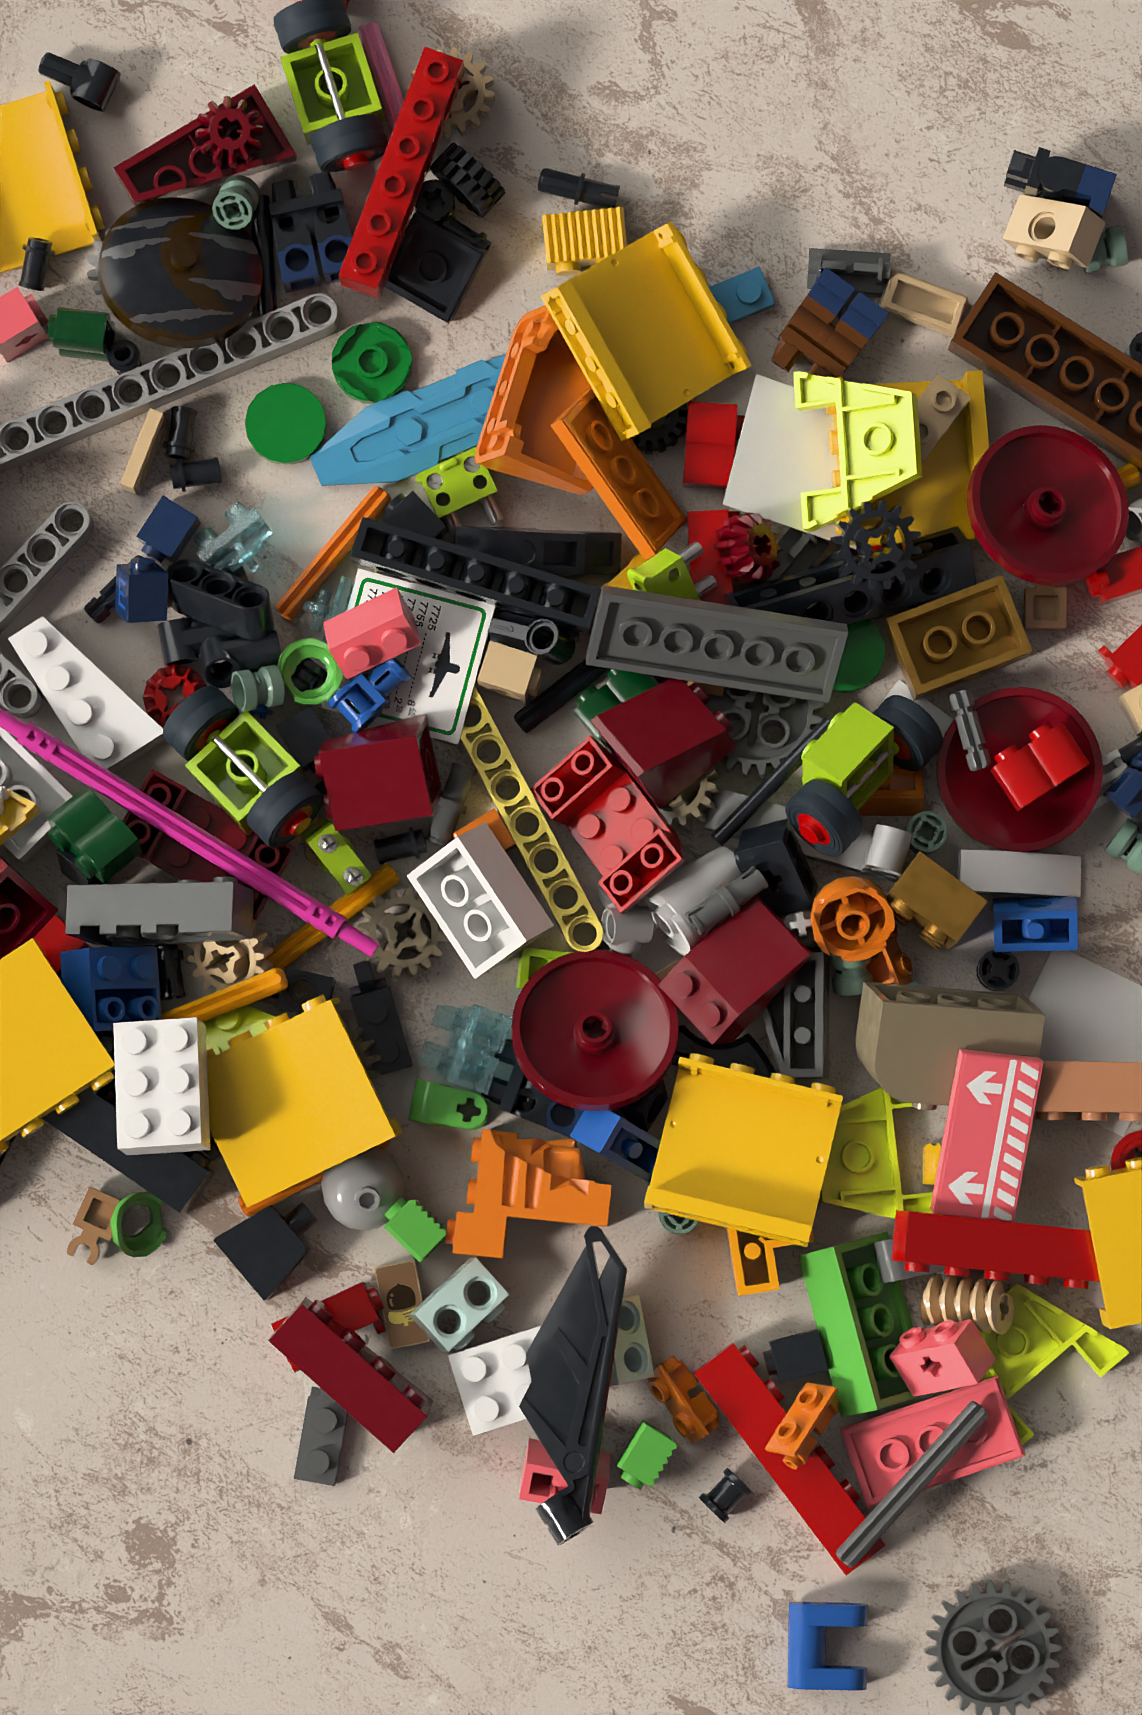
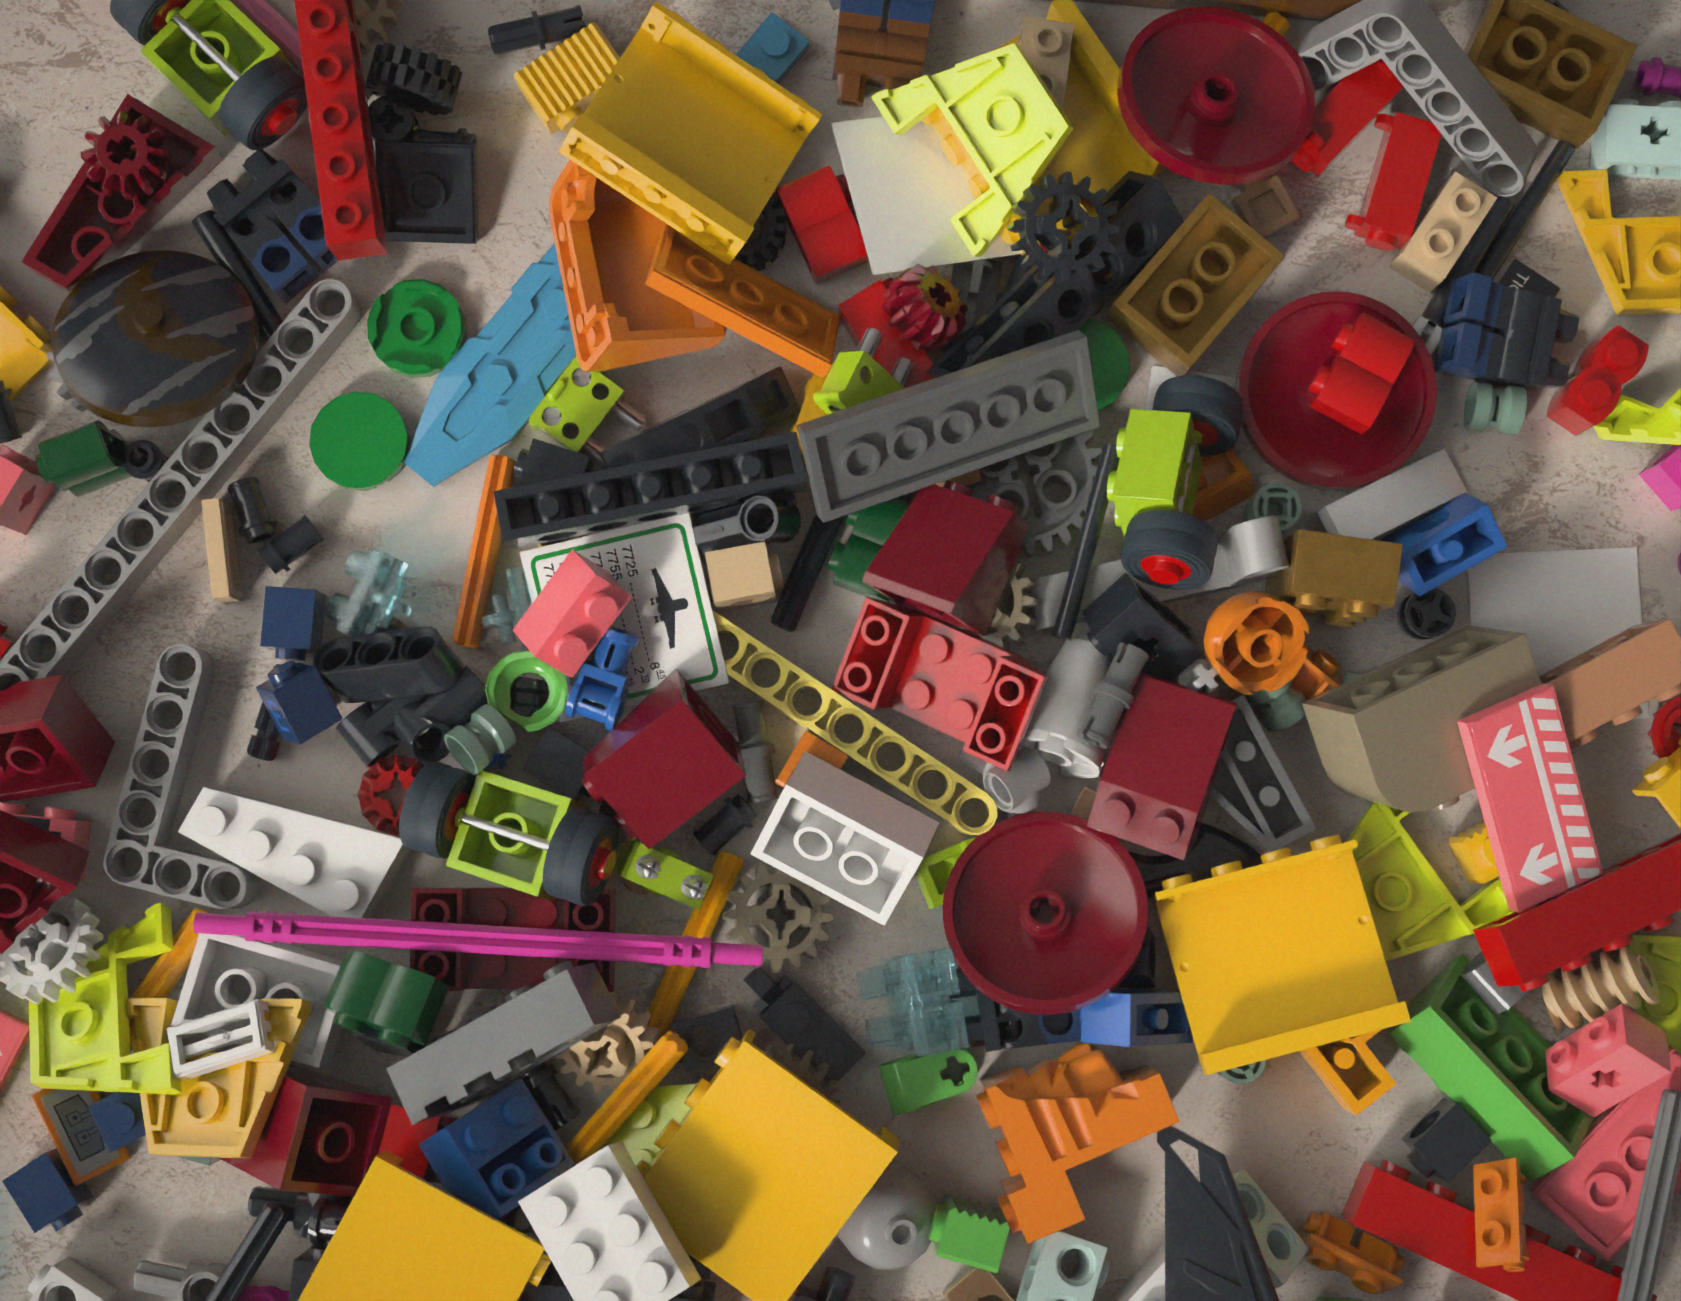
camera: 40 degrees left, 0 degrees up
(241, 194) = (179, 220): sand green wheel -> none
(970, 730) = (1265, 375): dark grey axle -> none

